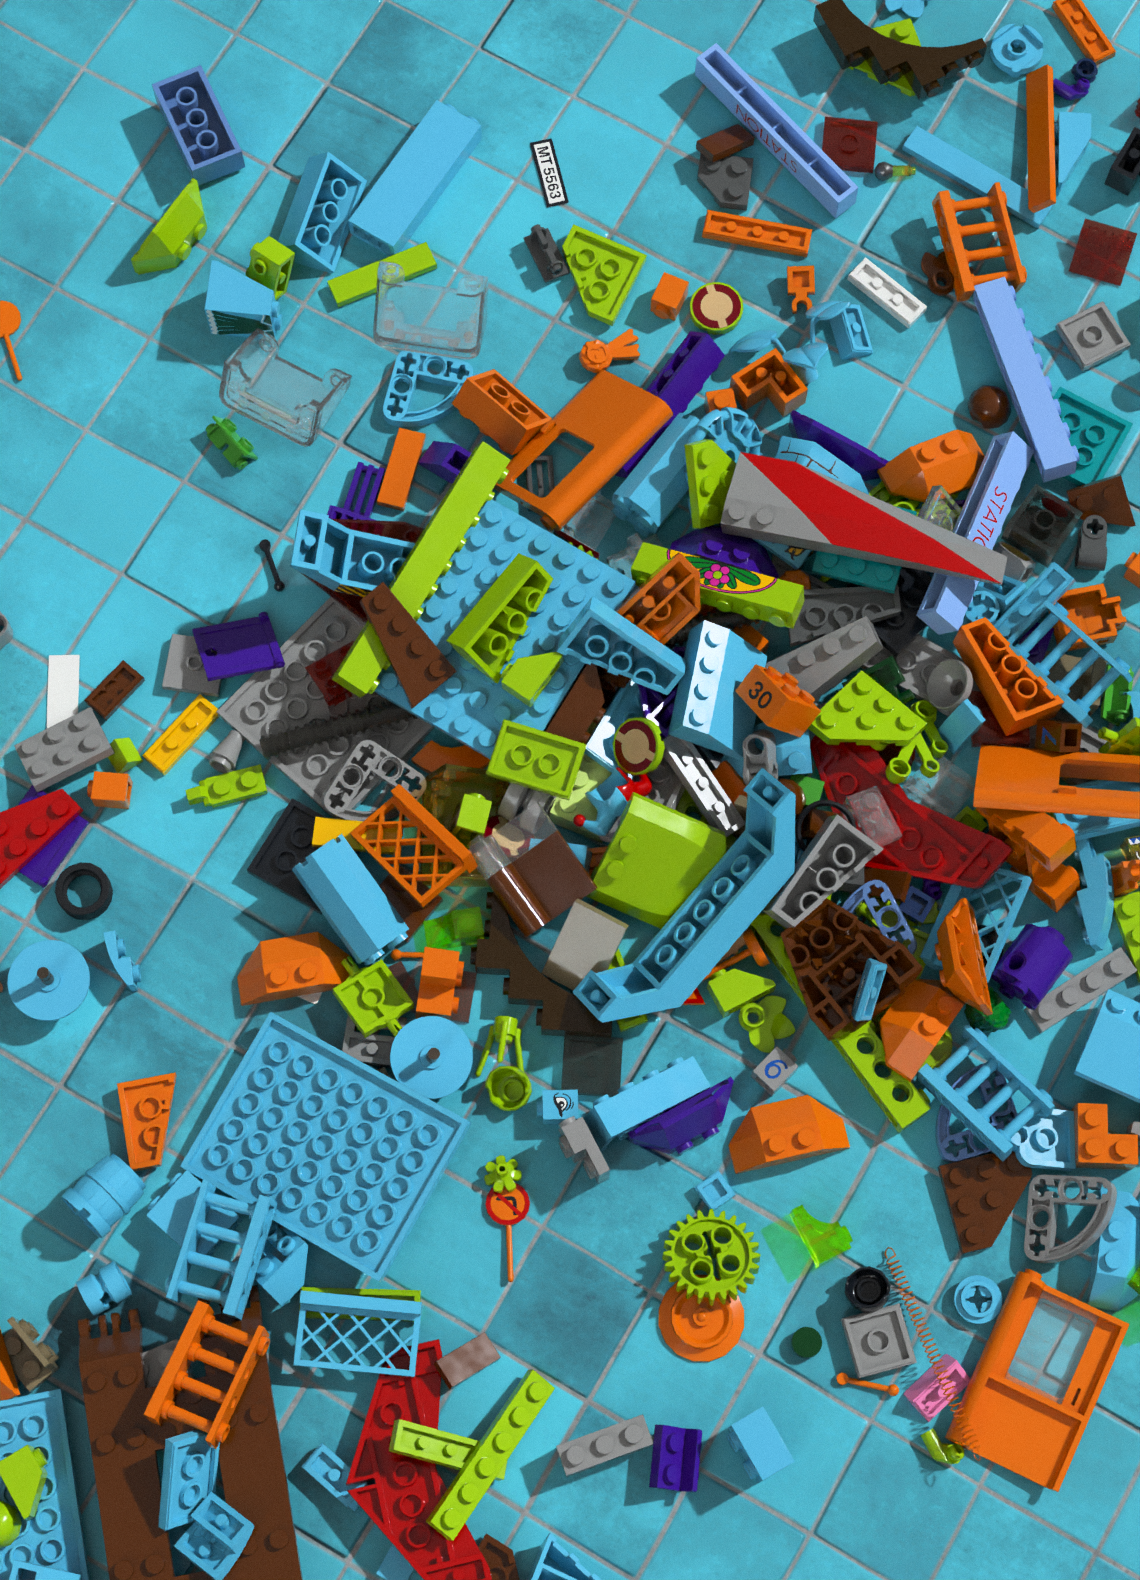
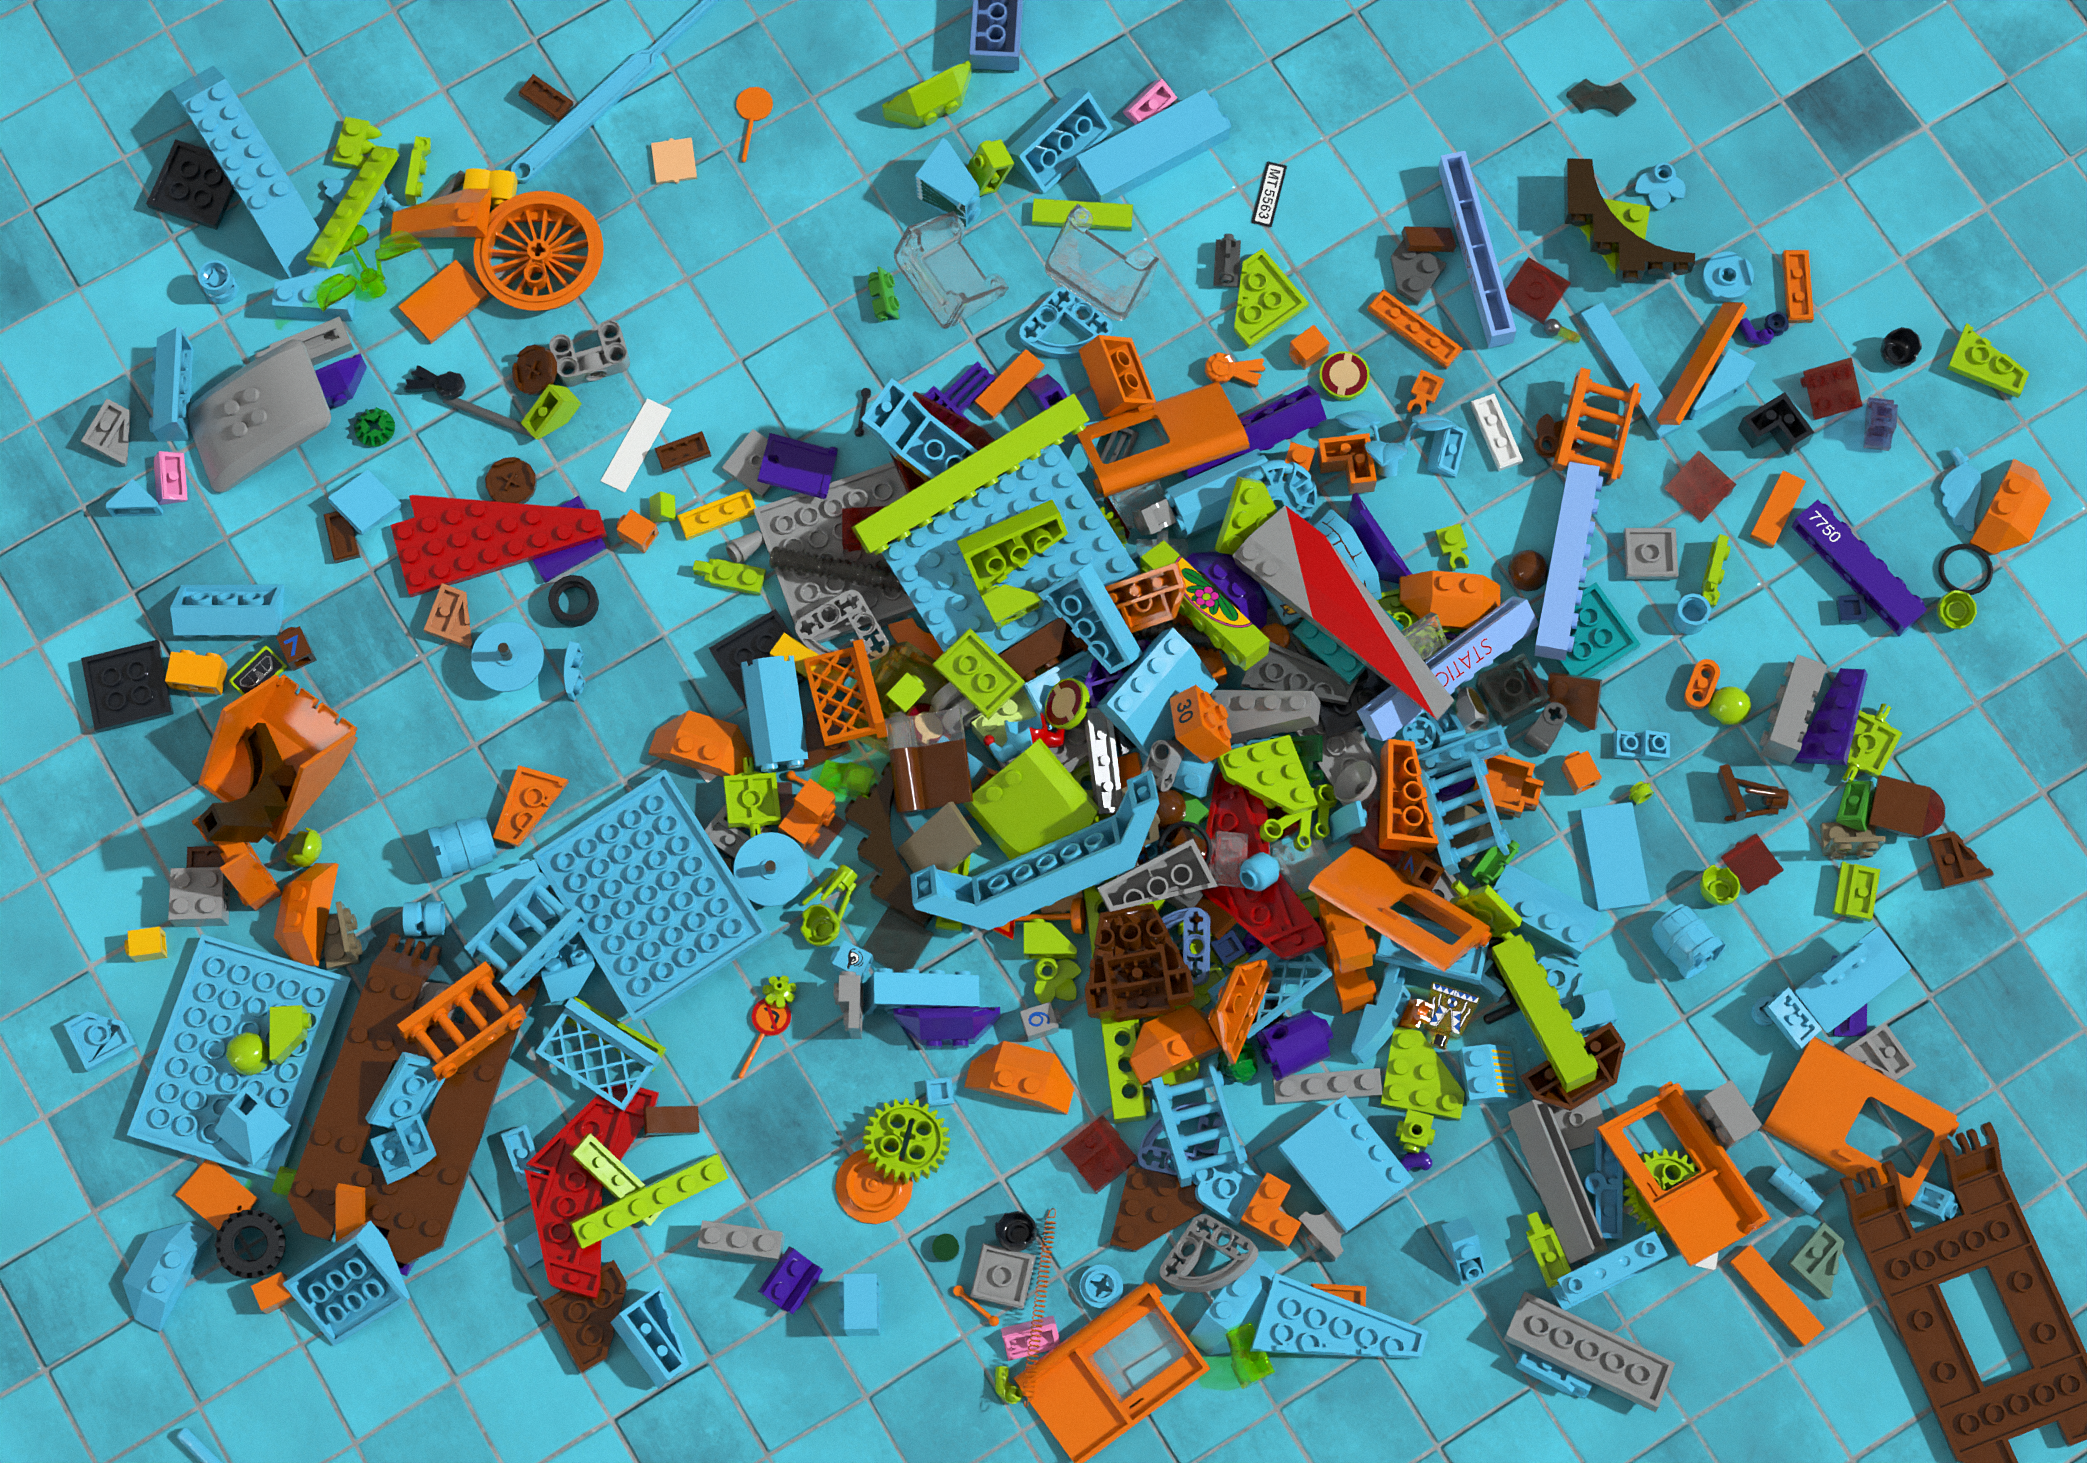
camera: 30 degrees right, 0 degrees up
(64, 749) = (617, 480): light grey plate -> none
(388, 139) = (1150, 102): none -> bright pink slope
(412, 654) = (922, 531): reddish brown wing -> none
(615, 527) = (1153, 517): none -> light grey brick
(822, 1239) = (1003, 1174): clear neon green arch -> none
(868, 990) = (1143, 993): medium azure slope -> none
(903, 1170) = (1099, 1154): none -> clear red slope
(905, 415) = (1452, 543): none -> lime plate
(911, 815) = (1259, 871): none -> medium azure head

